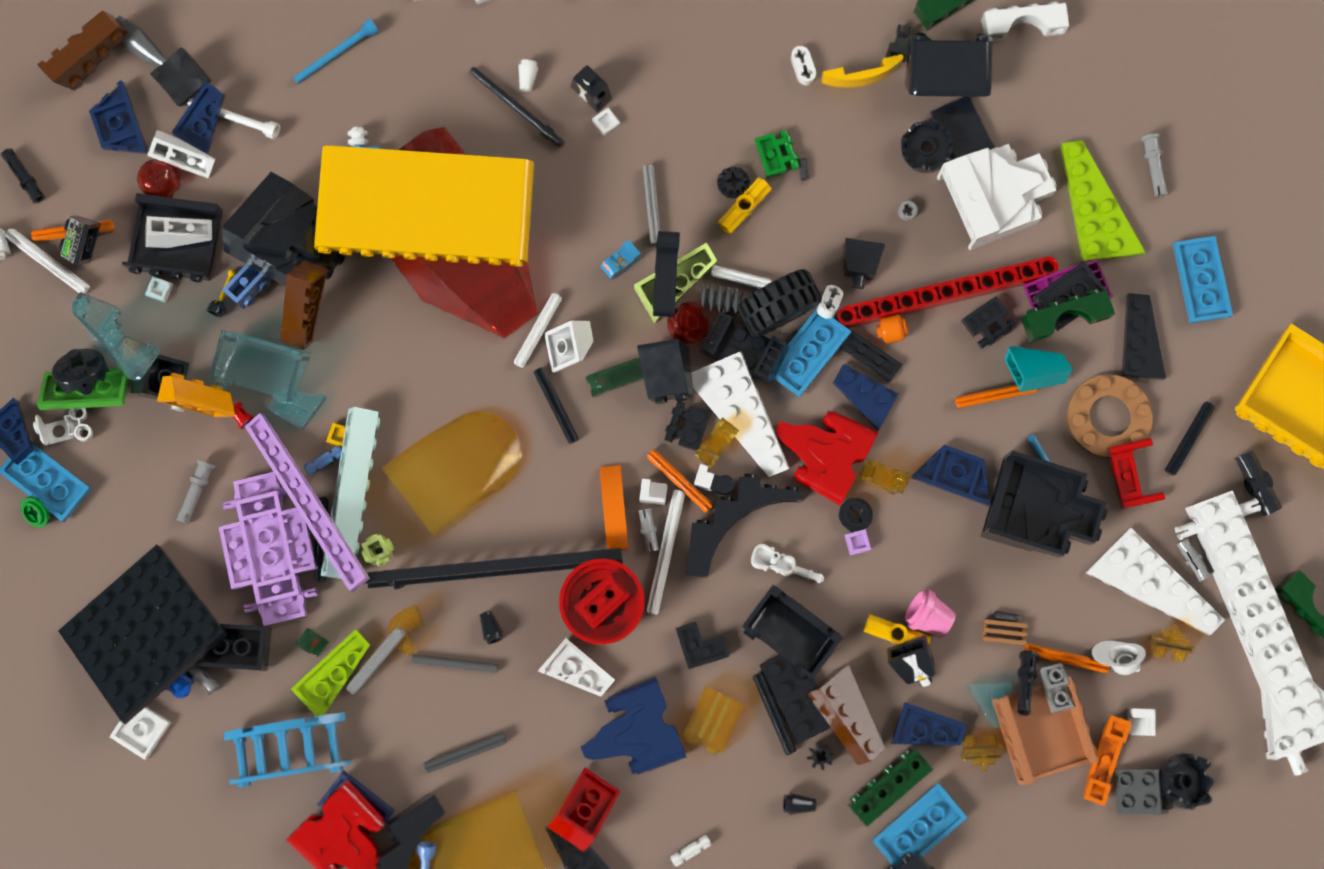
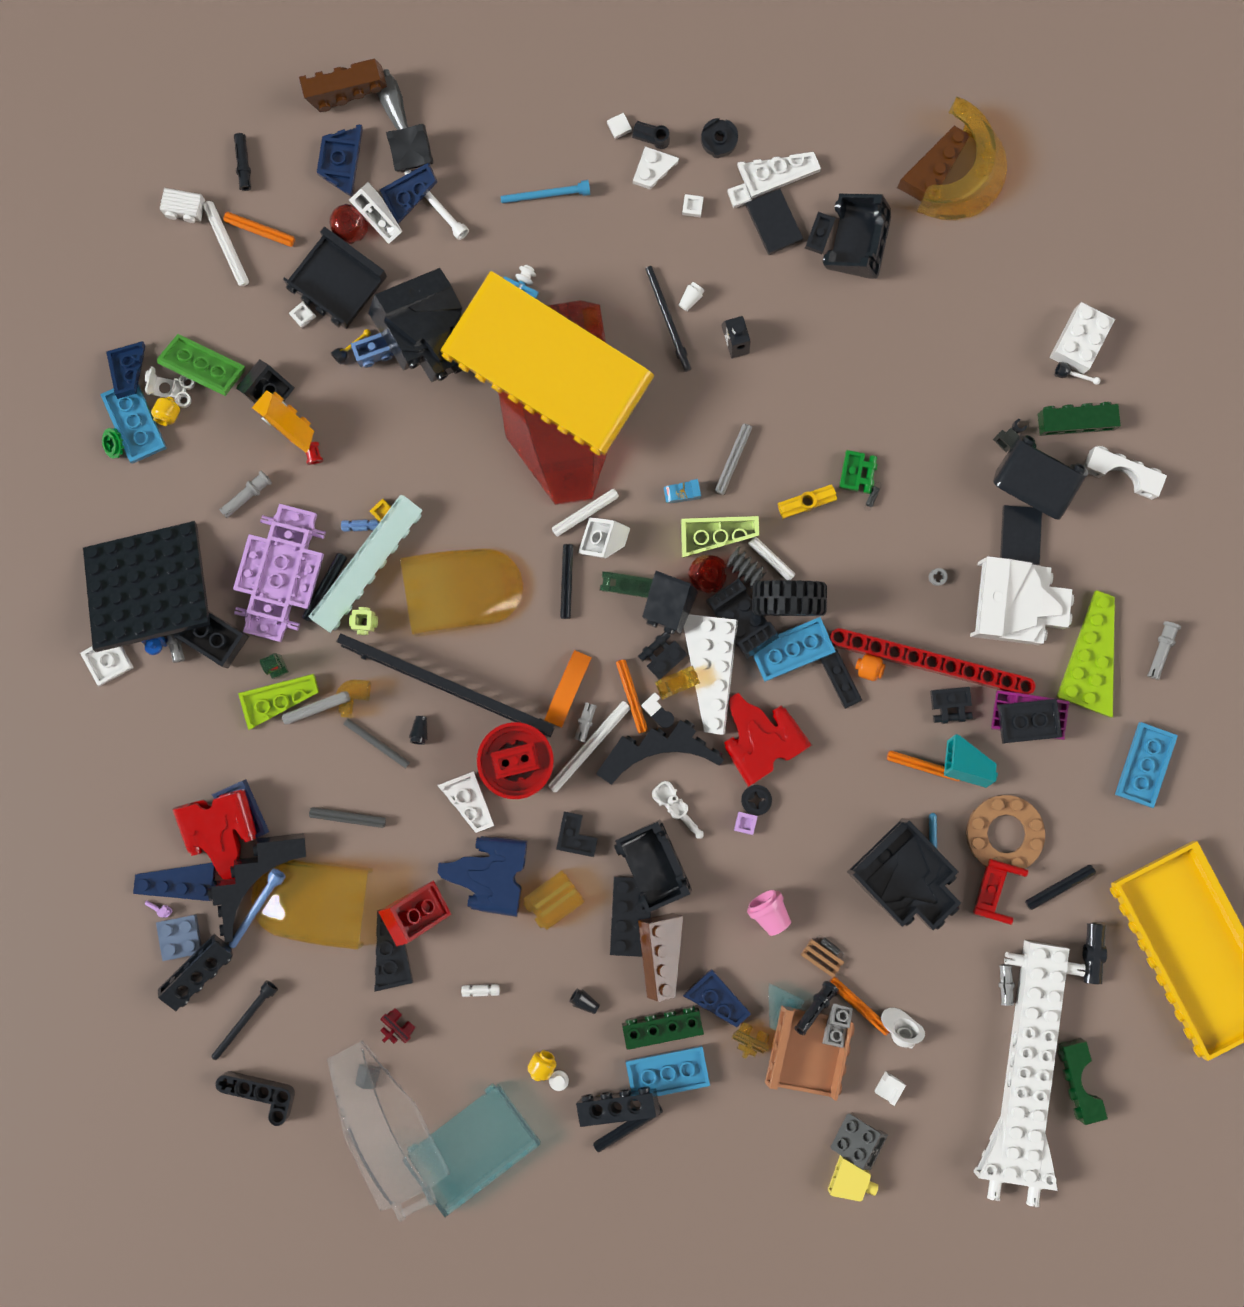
camera: 25 degrees right, 5 degrees up
(71, 452) = (165, 411): none -> yellow head
(79, 239) = (259, 240): black slope -> none
(79, 370) = (195, 351): black plate -> none
(101, 326) = (240, 321): clear light blue windscreen -> none
(174, 232) = (340, 275): white slope -> none
(258, 365) = (348, 420): clear light blue windscreen -> none
(281, 730) = (213, 722): dark azure fence -> none
(300, 410) = (360, 471): clear light blue wing -> none
(302, 304) = (407, 390): reddish brown wedge -> none
(307, 502) = (327, 553): lavender plate -> none
(606, 121) = (733, 370): white tile -> none
(653, 492) = (605, 694): white panel -> none
(665, 273) = (710, 525): black beam -> none
(727, 188) = (801, 479): black gear -> none
(774, 713) = (604, 921): black axle -> none
(807, 64) = (925, 410): white beam -> none
(813, 757) = (619, 979): black gear -> none
(833, 303) = (830, 615): white beam -> none
(837, 77) = (942, 436): yellow slope -> none
(861, 260) = (877, 598): black torso -> none
(866, 394) = (819, 708): dark blue wing -> none
(883, 477) = (795, 783): clear yellow brick -> none
(883, 629) = (743, 922): yellow piece -> none
(913, 661) = (735, 941): black torso -> none
(926, 132) = (988, 520): black plate -> none
(956, 473) = (855, 811): dark blue wing -> none
(1092, 308) = (1041, 742): dark green arch -> none
(1108, 751) = (851, 1095): orange slope -> none
(1141, 344) = (1067, 786): black wing -> none
(1148, 578) = (960, 975): white wing -> none
(1156, 834) = (851, 1181): none -> light yellow torso
(1161, 643) = (951, 1038): clear yellow hips -> none
(1197, 781) = (907, 1159): black plate -> none

